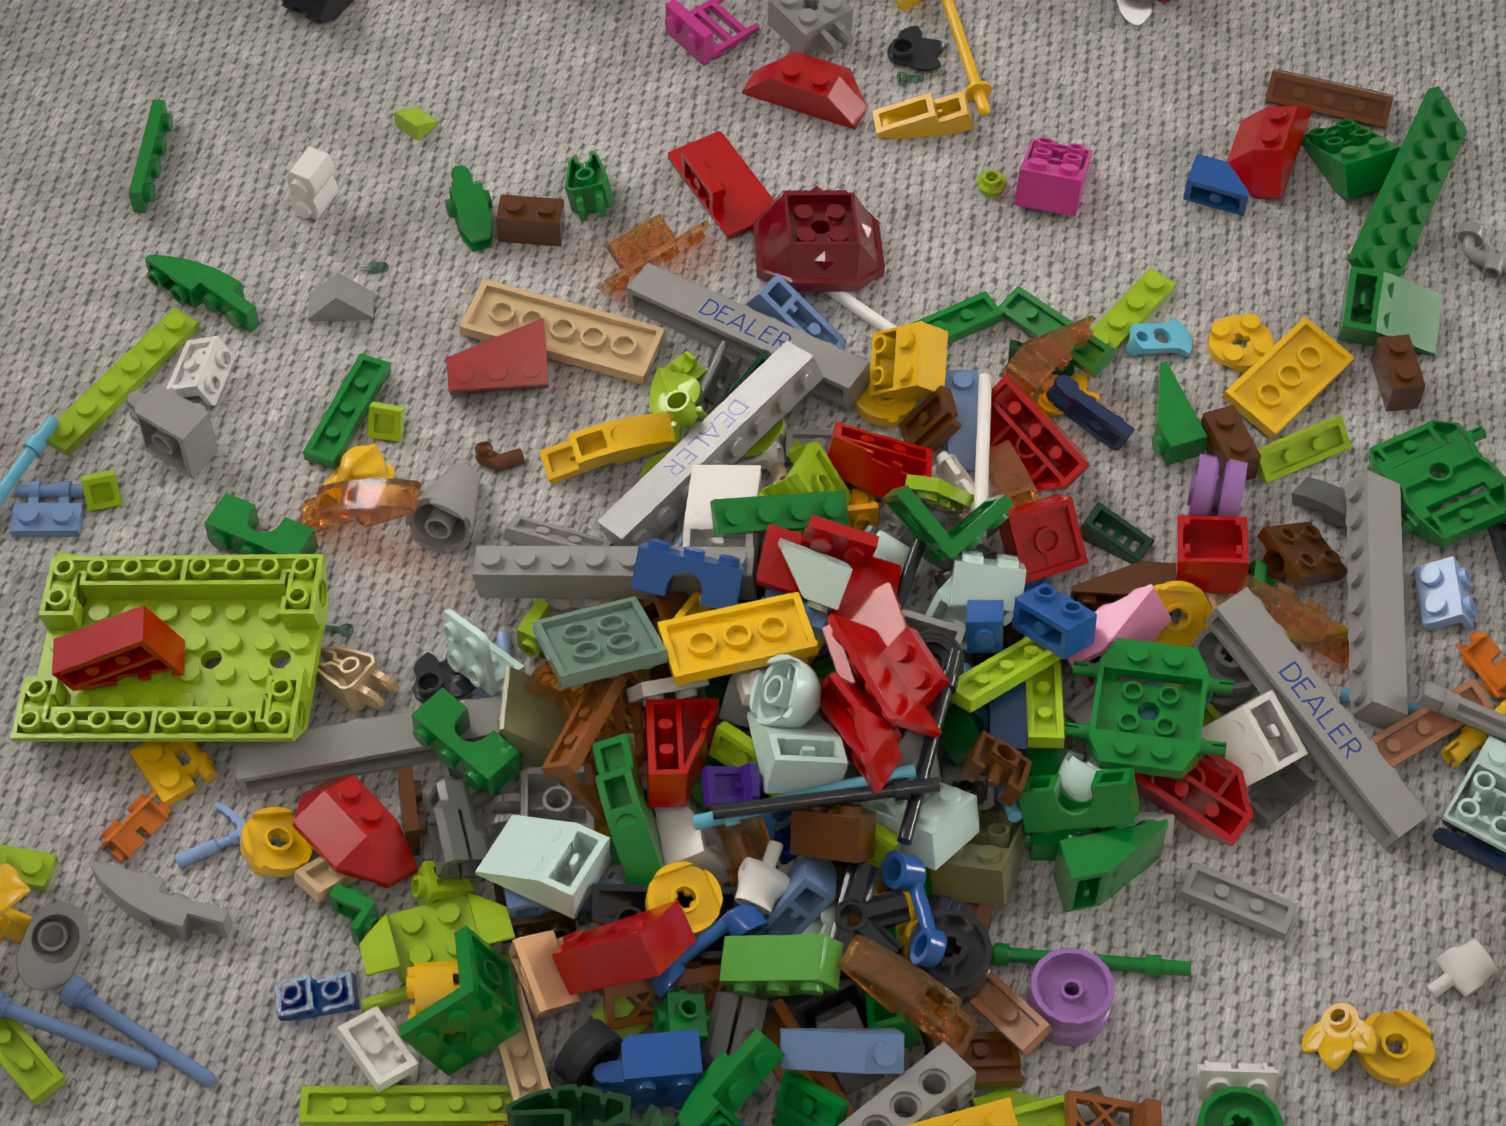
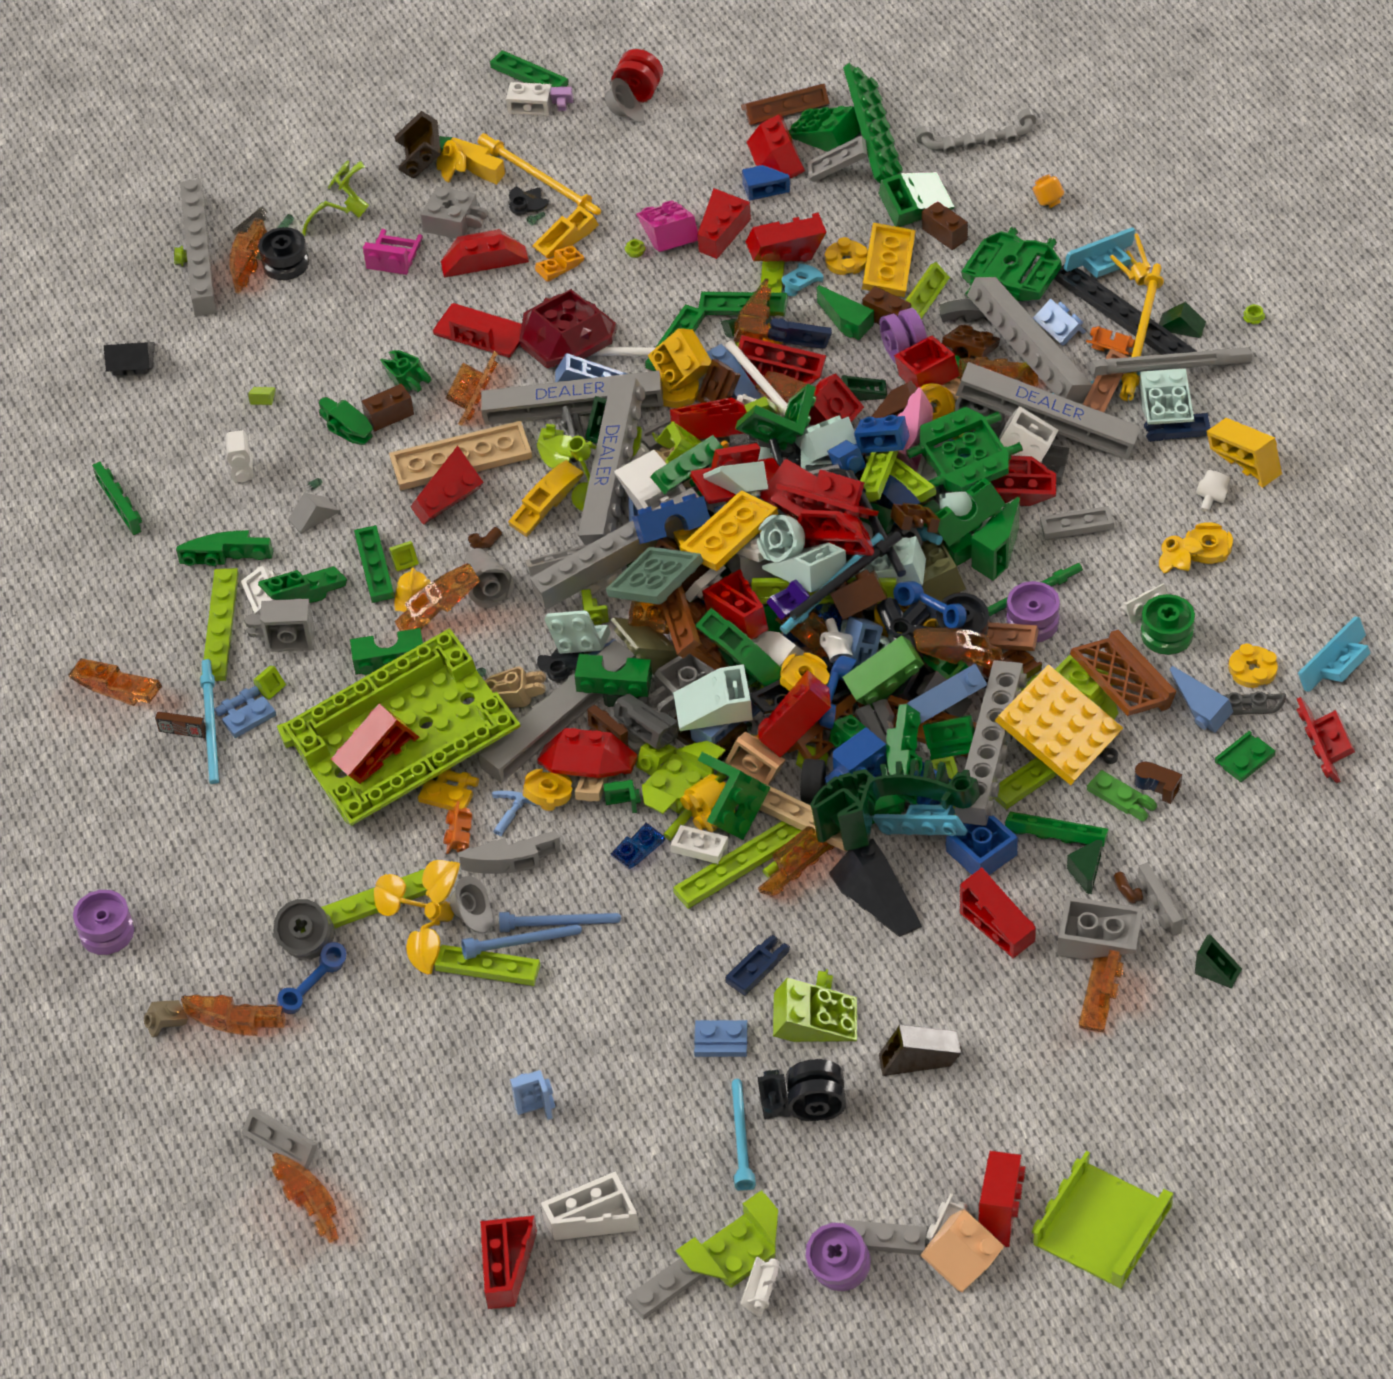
camera: 30 degrees left, 5 degrees down
(225, 390) = (308, 586): none -> green slope
(896, 151) = (563, 261): none -> light orange slope
(1118, 209) = (722, 222): none -> red wedge
(1170, 280) = (786, 241): none -> red wedge
(1328, 206) = (837, 159): none -> light grey plate

